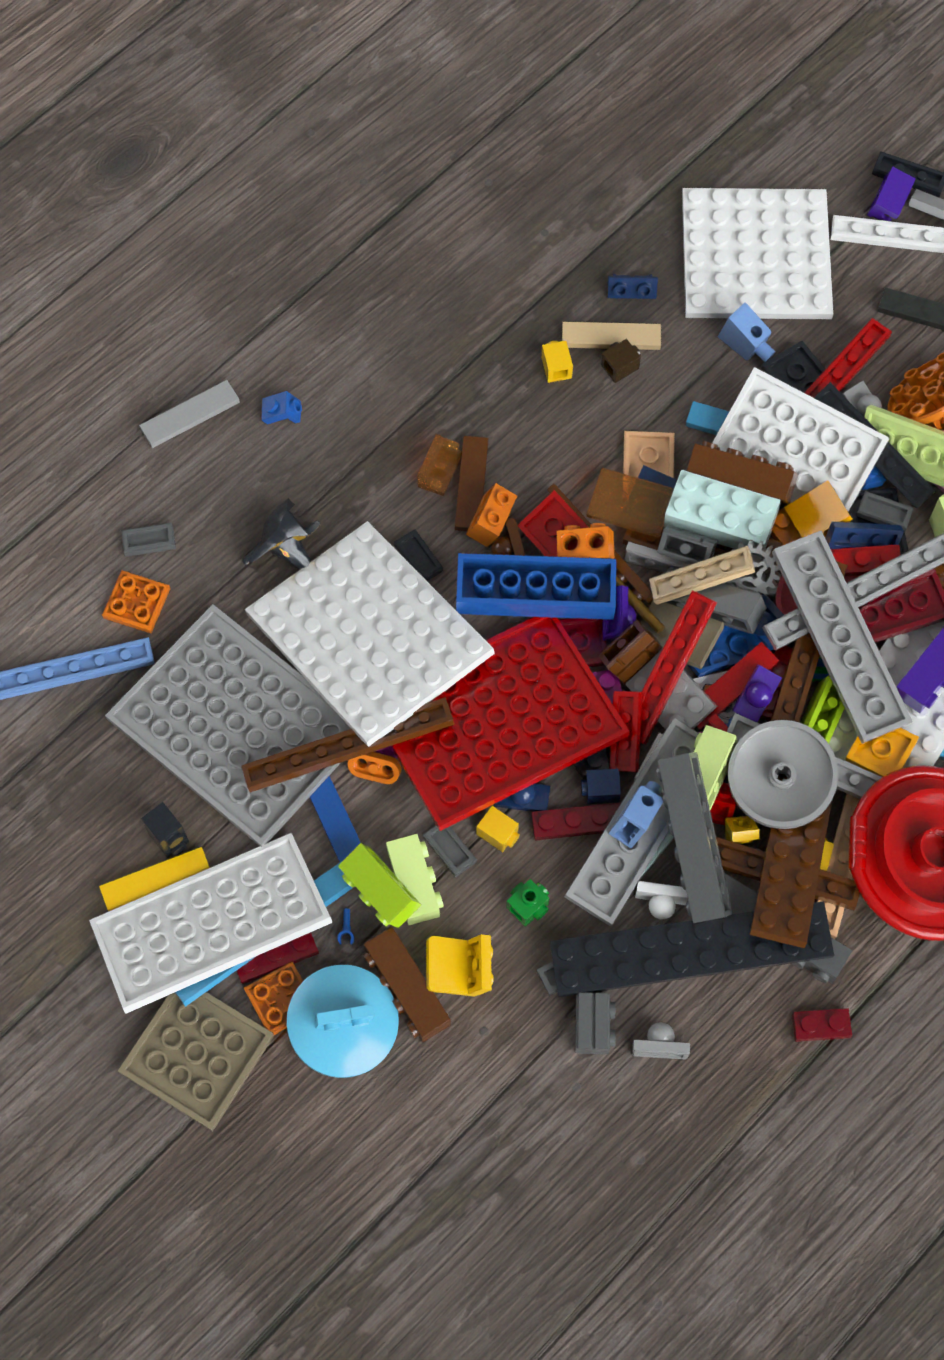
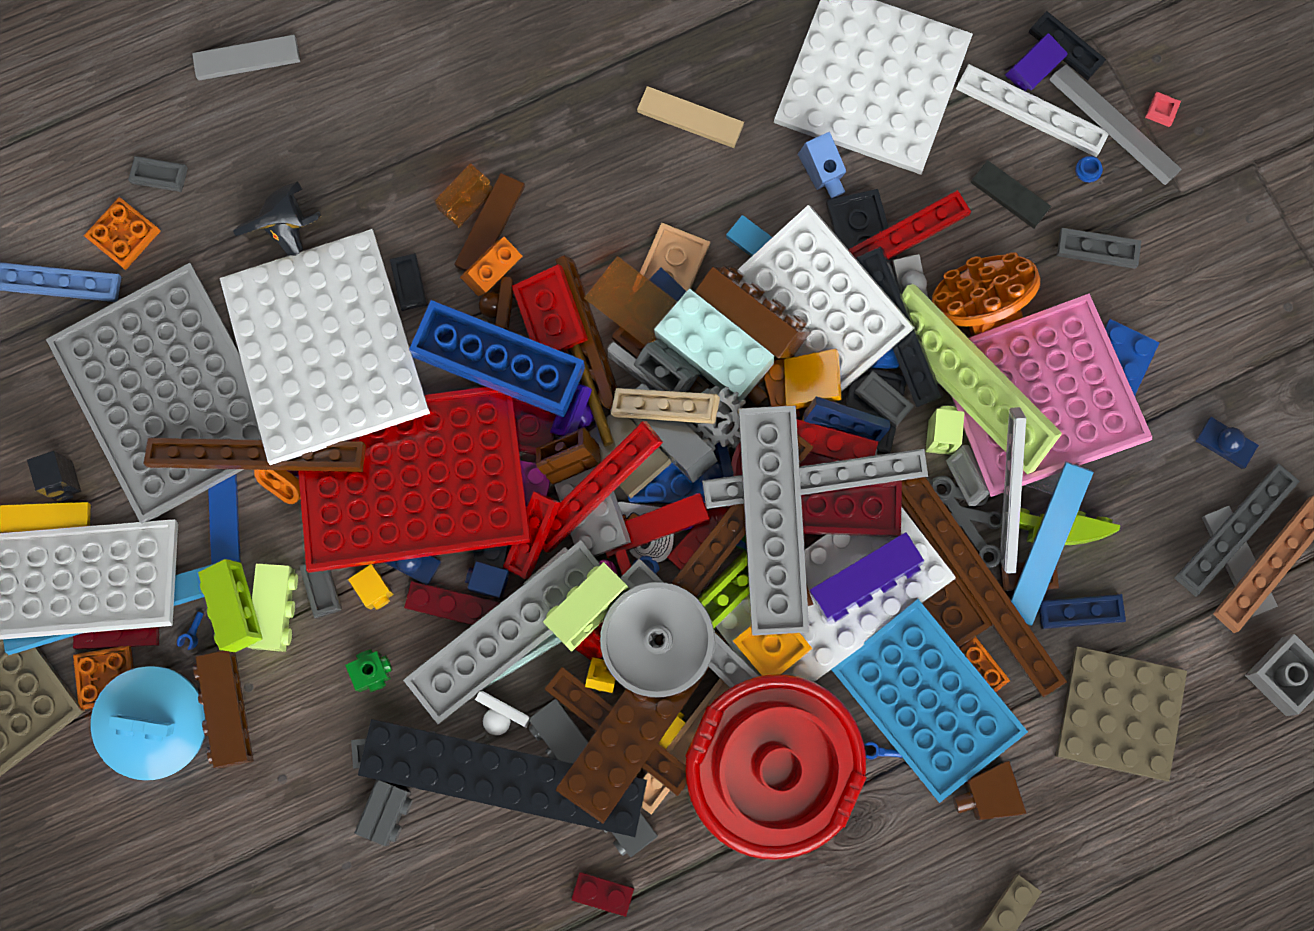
camera: 20 degrees right, 10 degrees up
(281, 407) = (335, 82): blue bracket -> none
(459, 965) = (277, 709): yellow bracket -> none
(557, 361) = (623, 126): yellow brick -> none
(585, 541) = (562, 335): orange brick -> none
(621, 360) = (688, 146): dark brown brick -> none
(632, 287) = (724, 70): dark blue hinge -> none
(637, 814) = (494, 634): medium blue torso -> none
(660, 1044) = (439, 857): light grey tile -> none
(694, 837) = (543, 673): dark grey brick -> none
(757, 693) = (674, 544): dark purple tile -> none

